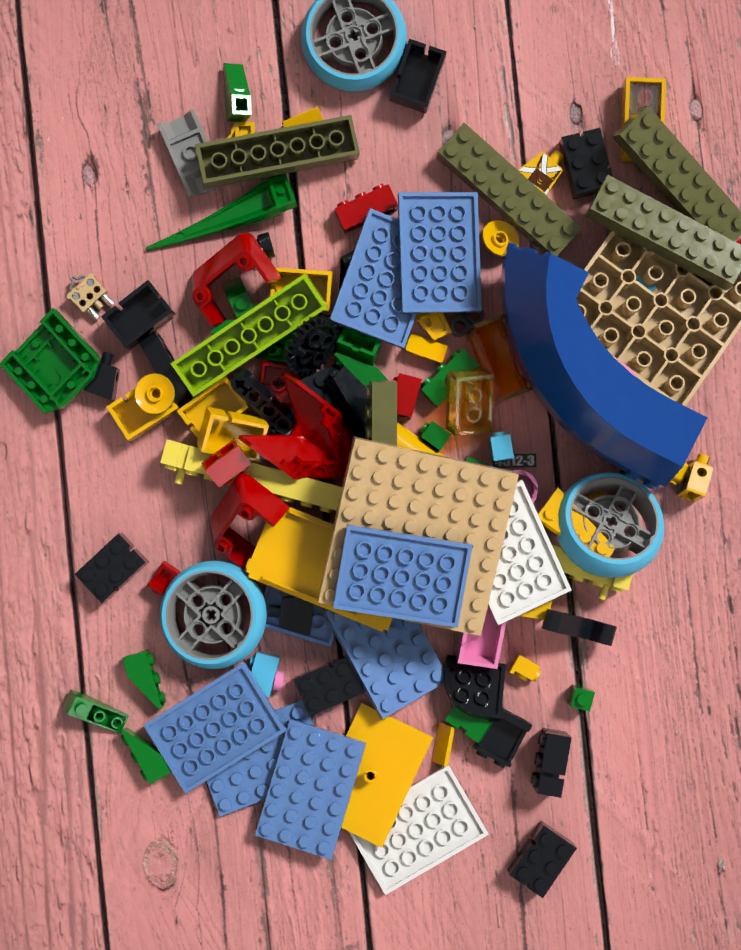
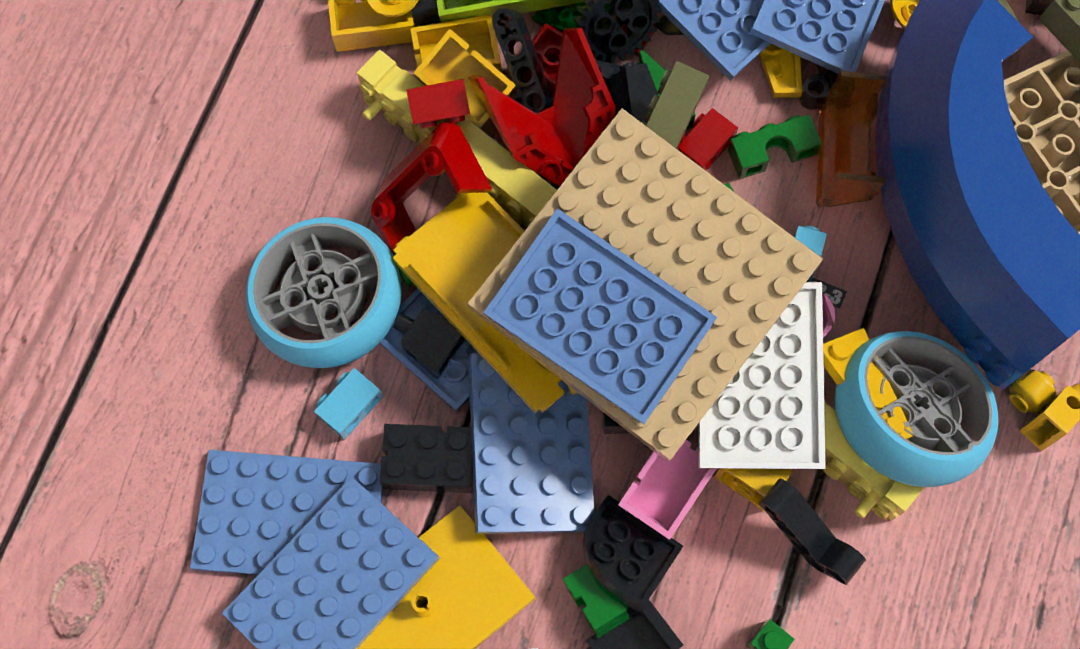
camera: 25 degrees right, 15 degrees down
(94, 711) = (107, 352): green slope -> none
(111, 567) = (231, 178): black piece -> none
(141, 672) = (194, 329): green slope -> none
(146, 755) = (142, 447): green slope -> none
(163, 578) = (287, 218): red bracket -> none
(215, 727) = (247, 439): medium blue plate -> none
(278, 680) = (364, 422): bright pink tile -> none
(358, 346) = (667, 47): green brick -> none
(426, 348) = (758, 102): yellow slope -> none
(443, 744) = (545, 616): yellow slope -> none
(469, 401) = (790, 176): clear yellow brick -> none
(525, 668) = (708, 563): yellow brick -> none

